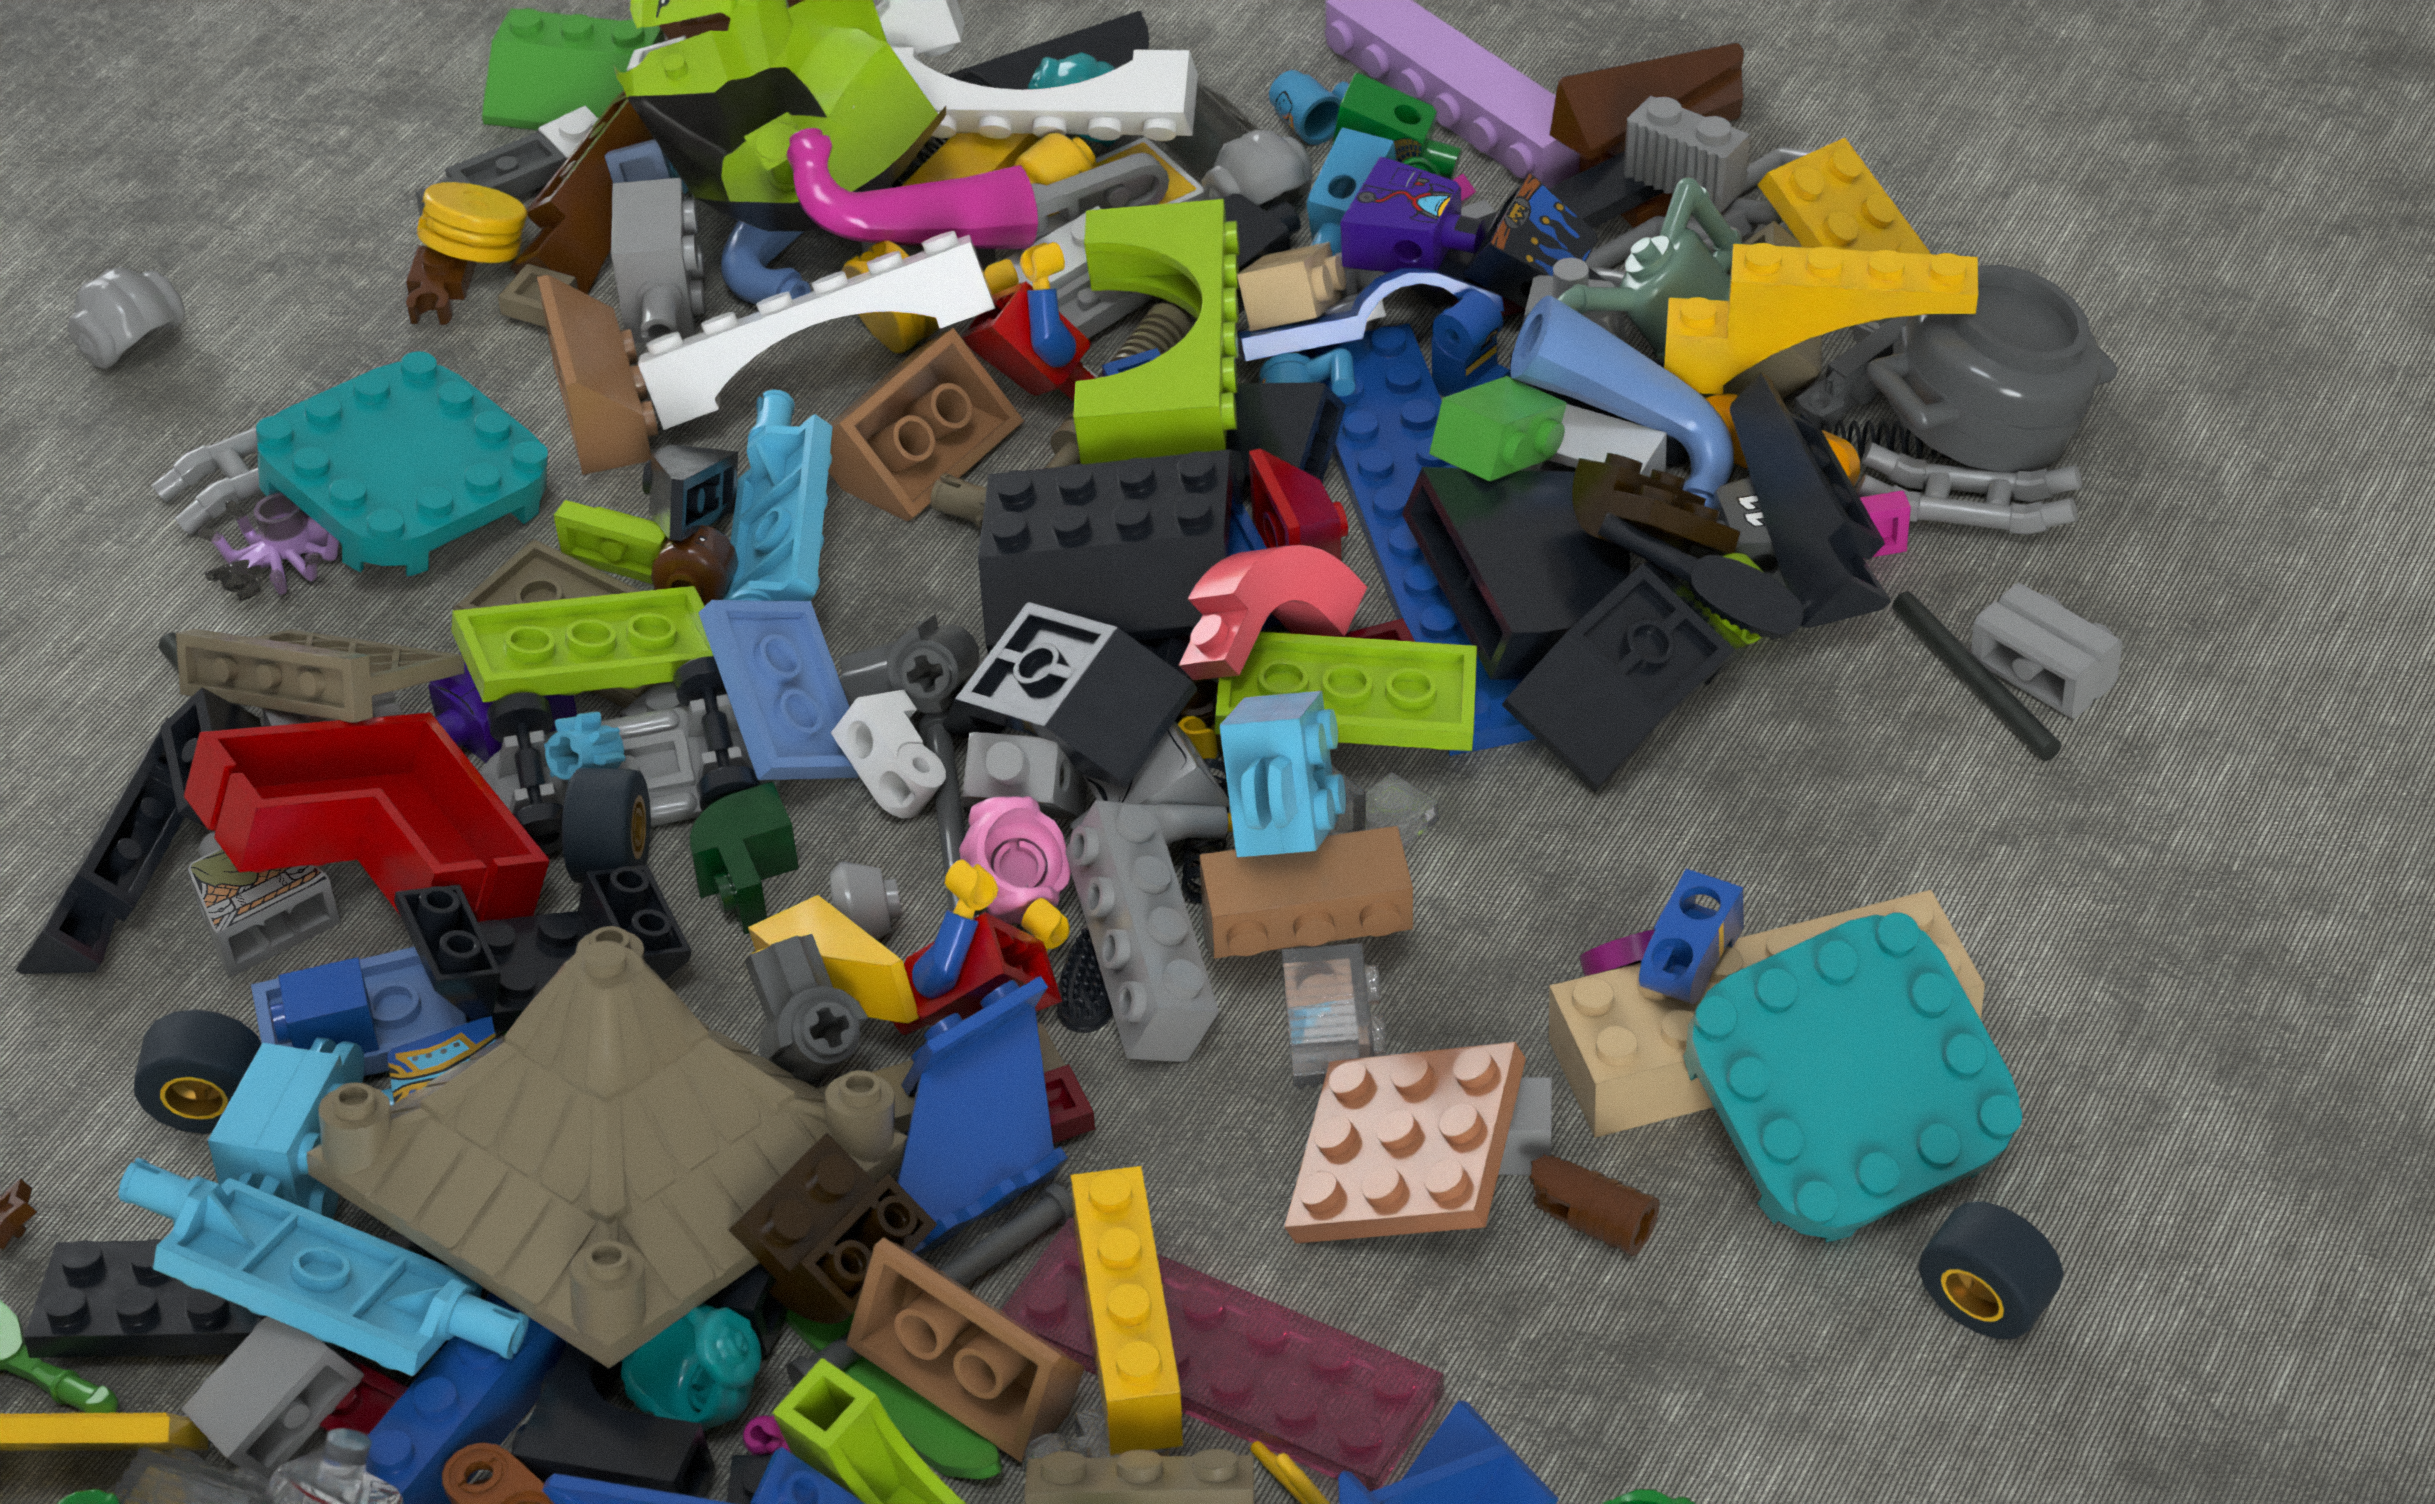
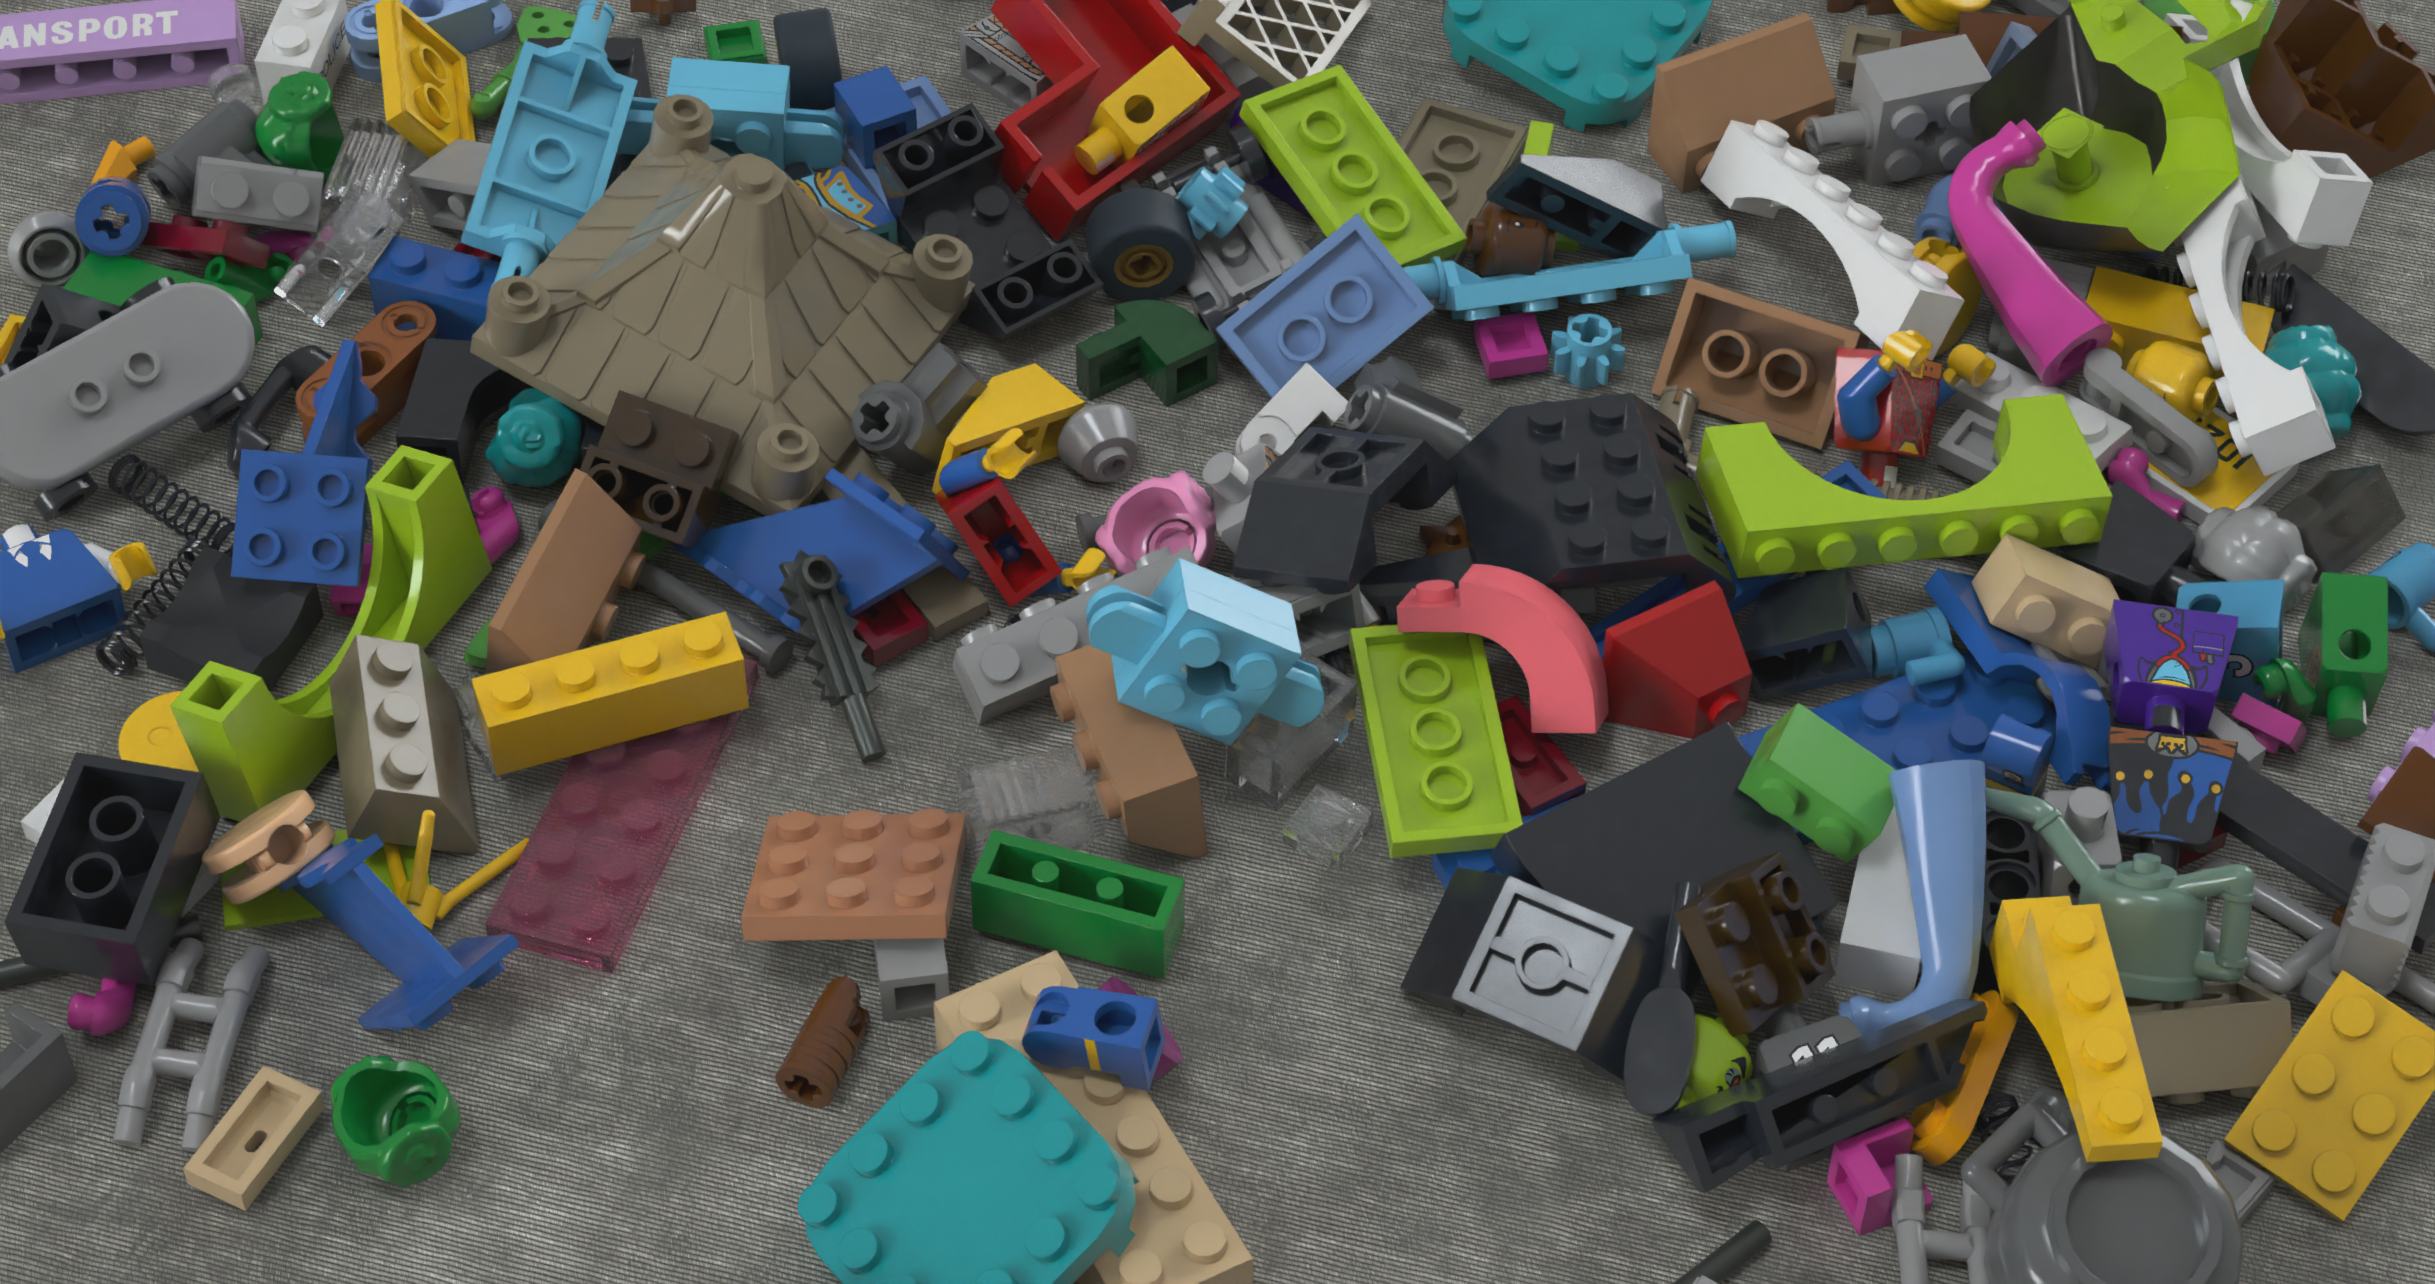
camera: 75 degrees right, 5 degrees up
(99, 1163) = (735, 42): none -> green tile
(439, 778) = (1142, 111): none -> yellow torso
(837, 594) = (1510, 345): none -> dark pink plate
(859, 539) = (1587, 350): none -> medium azure gear
(1033, 1123) = (833, 647): none -> pearl dark grey piece
(1478, 970) = (1078, 903): none -> green brick

